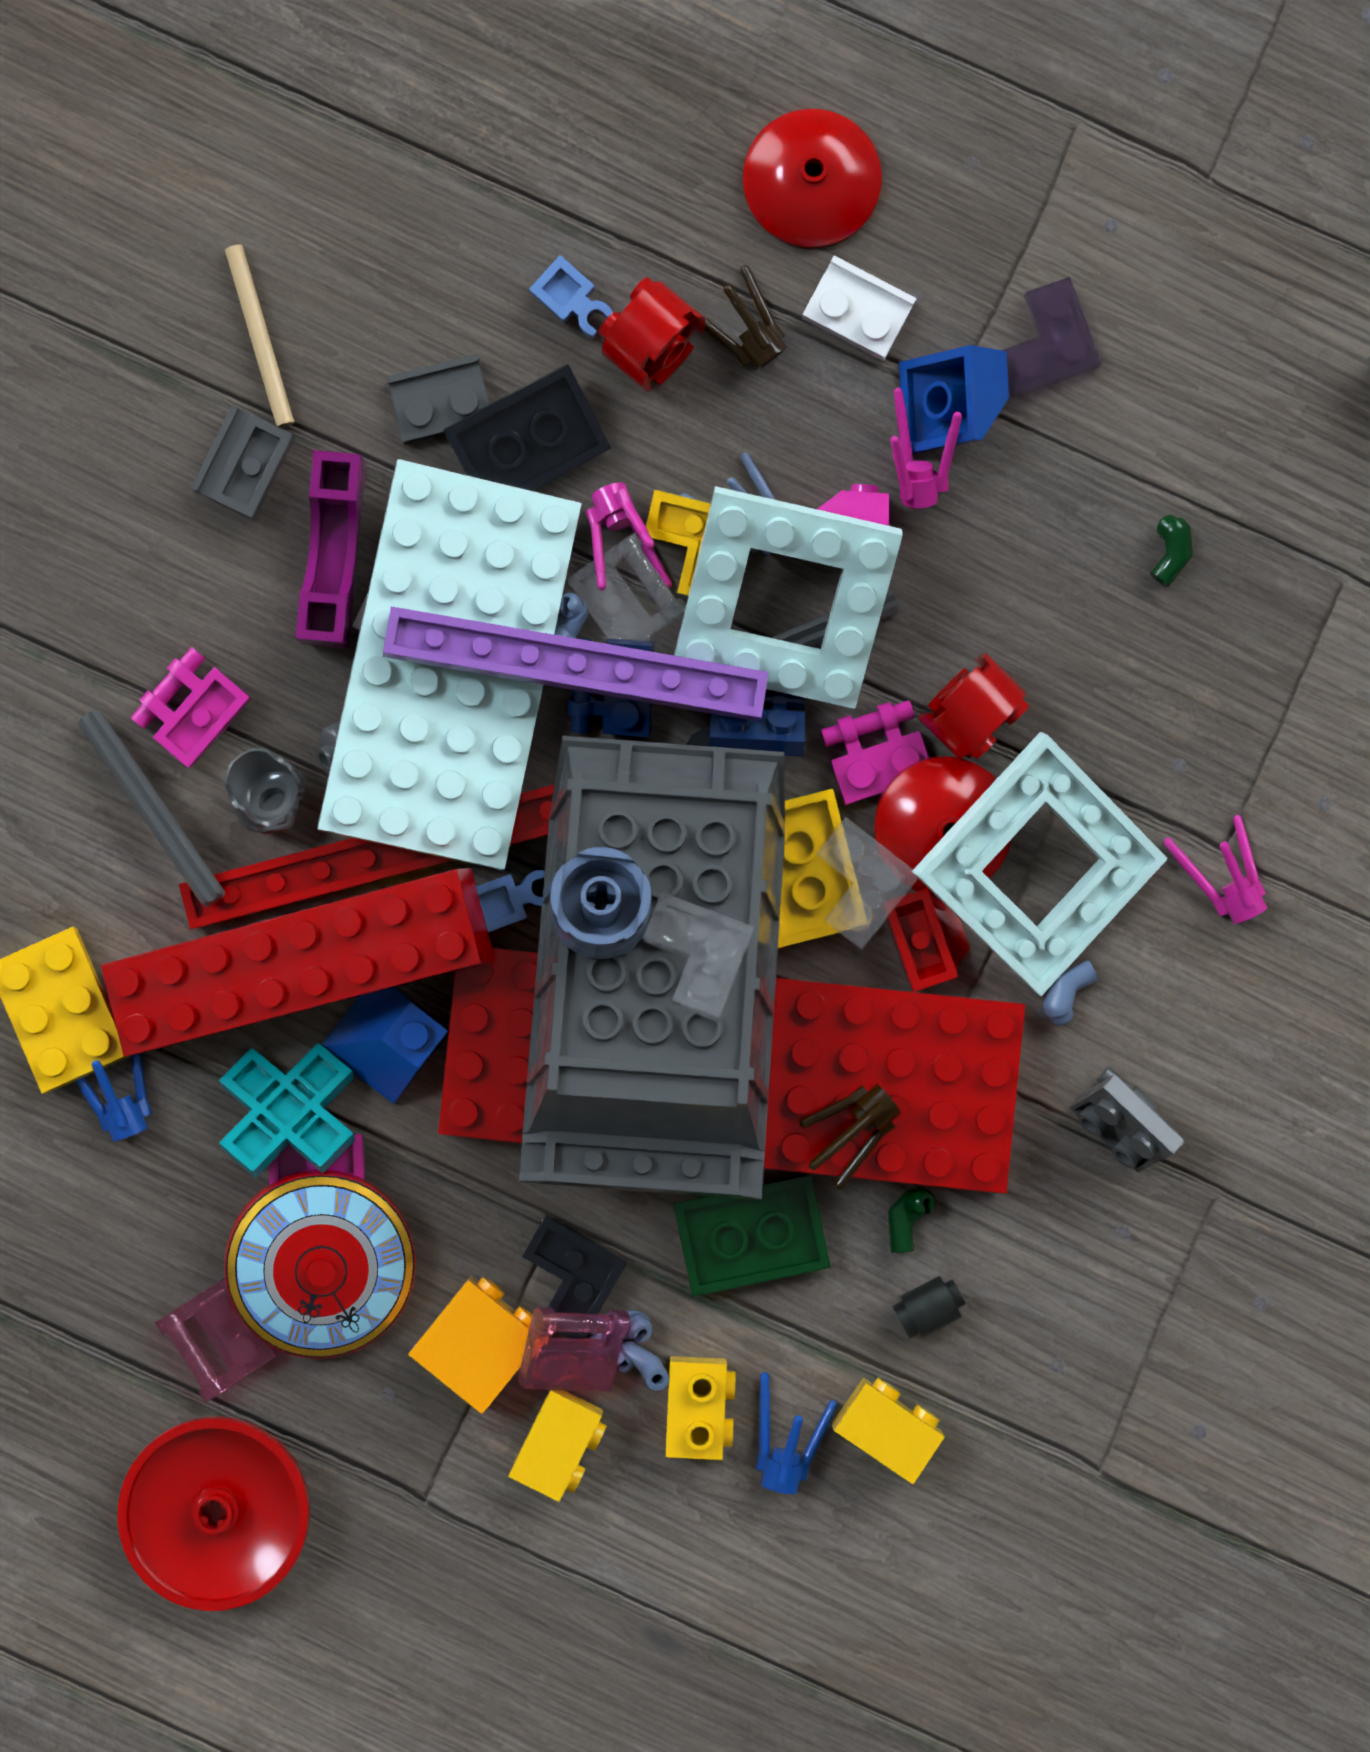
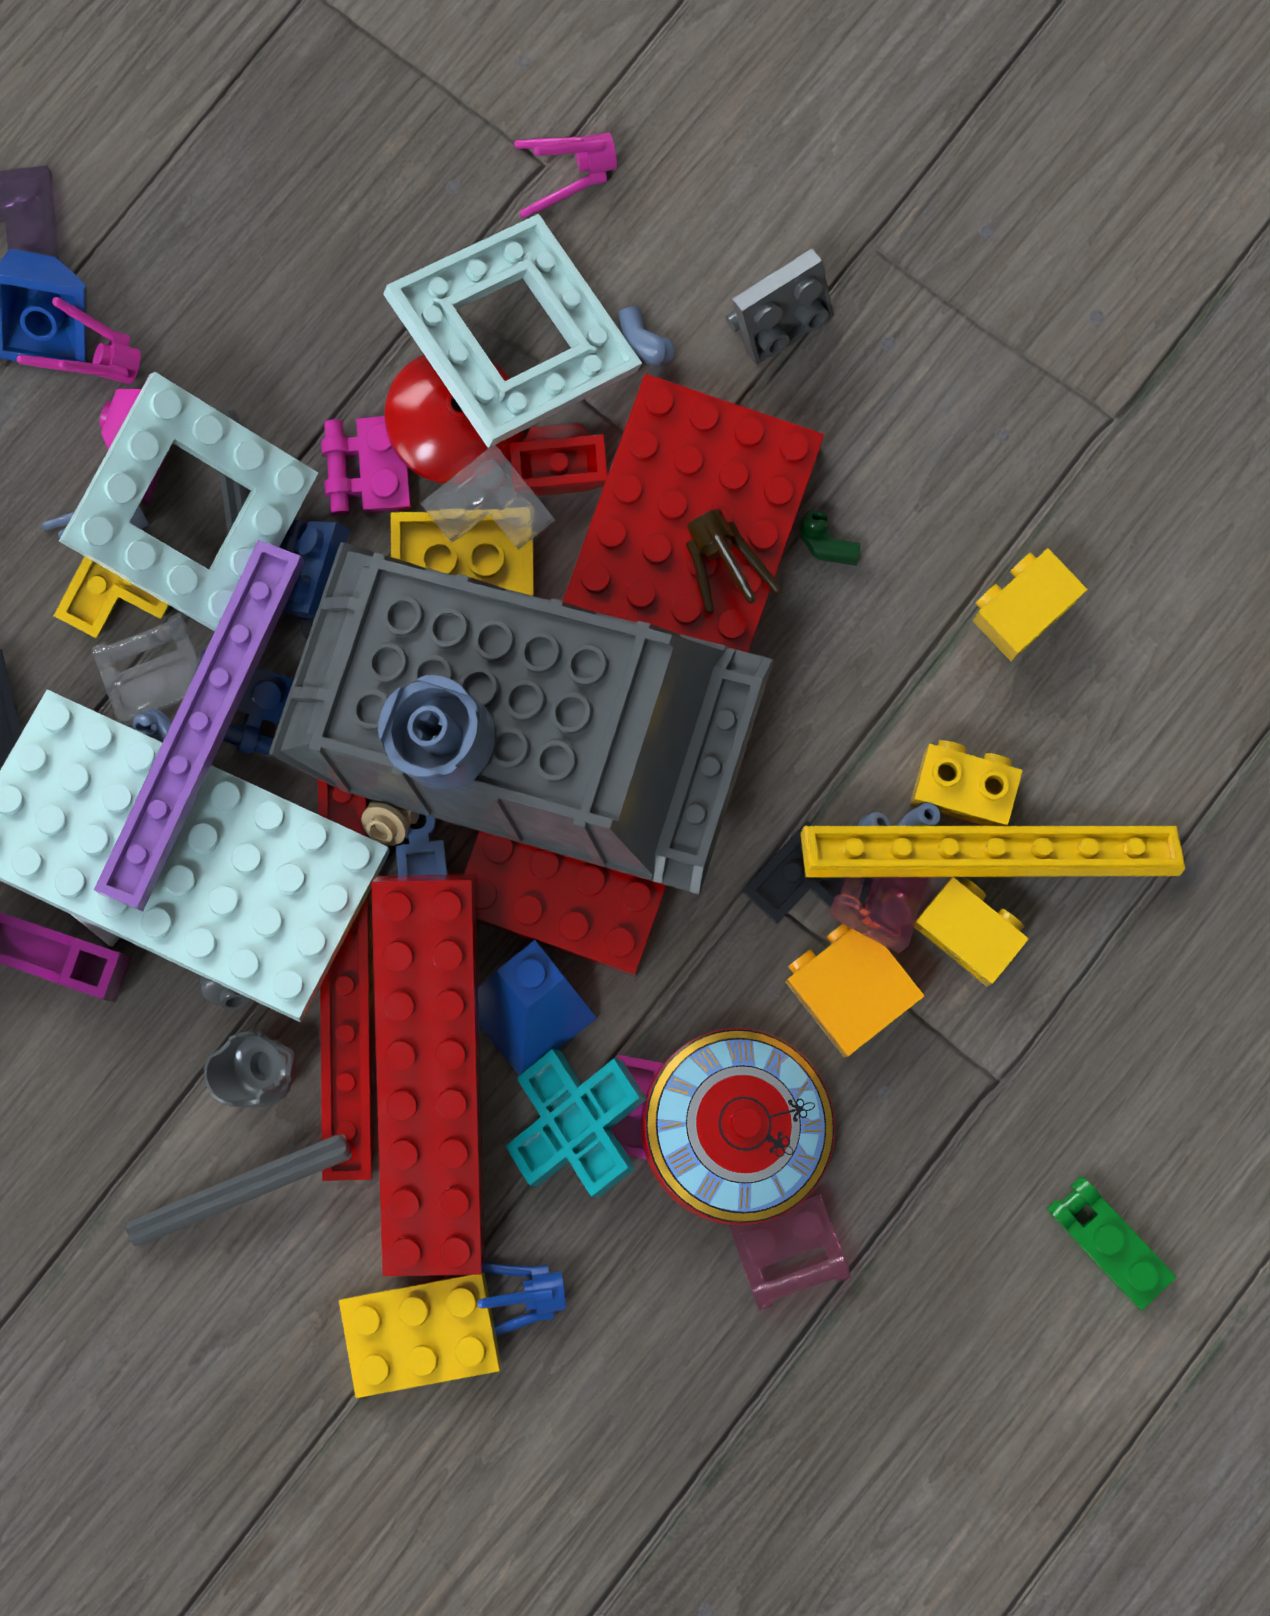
camera: 70 degrees left, 5 degrees down
(200, 717) = (161, 1120): dark pink plate -> none
(213, 1513) = (964, 1293): red dish -> none
(293, 1643) = (1112, 1245): none -> green plate
(528, 861) = (387, 823): none -> tan plate
(616, 510) = (63, 656): dark pink plant -> none
(636, 1448) = (991, 851): none -> yellow tile
(713, 951) = (507, 635): clear plate -> none
(752, 1240) = (809, 694): dark green plate -> none
(784, 1468) = (1044, 712): blue plant -> none
(929, 1307) = (918, 539): pearl dark grey brick -> none
(974, 707) = (346, 357): red brick -> none
(1178, 549) = (244, 136): dark green arm -> none

